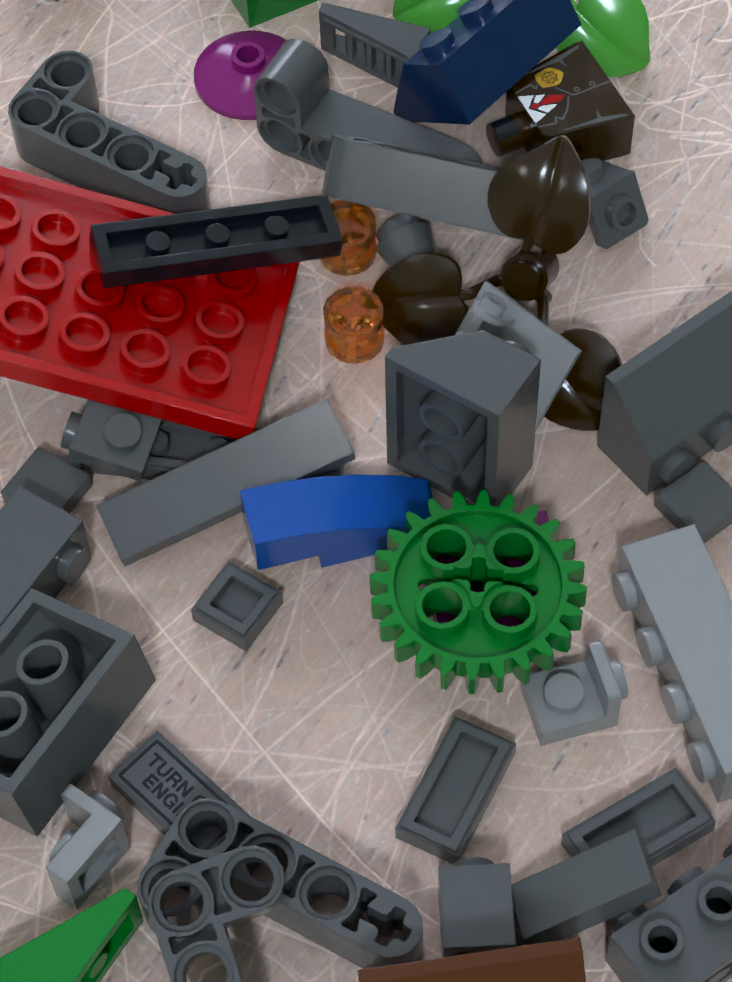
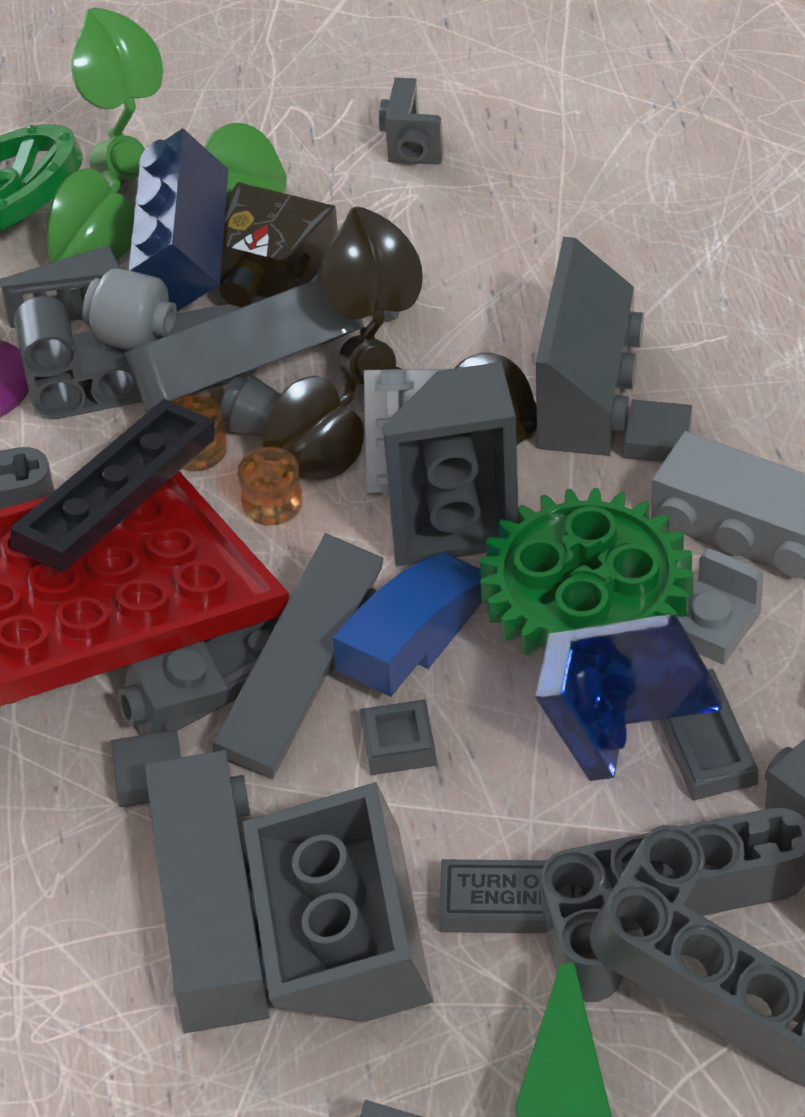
camera: 40 degrees left, 10 degrees down
(86, 855) = (480, 957): light grey bracket -> none
(369, 99) = (128, 309): none -> light grey head
(379, 691) = (617, 677): none -> clear blue bracket

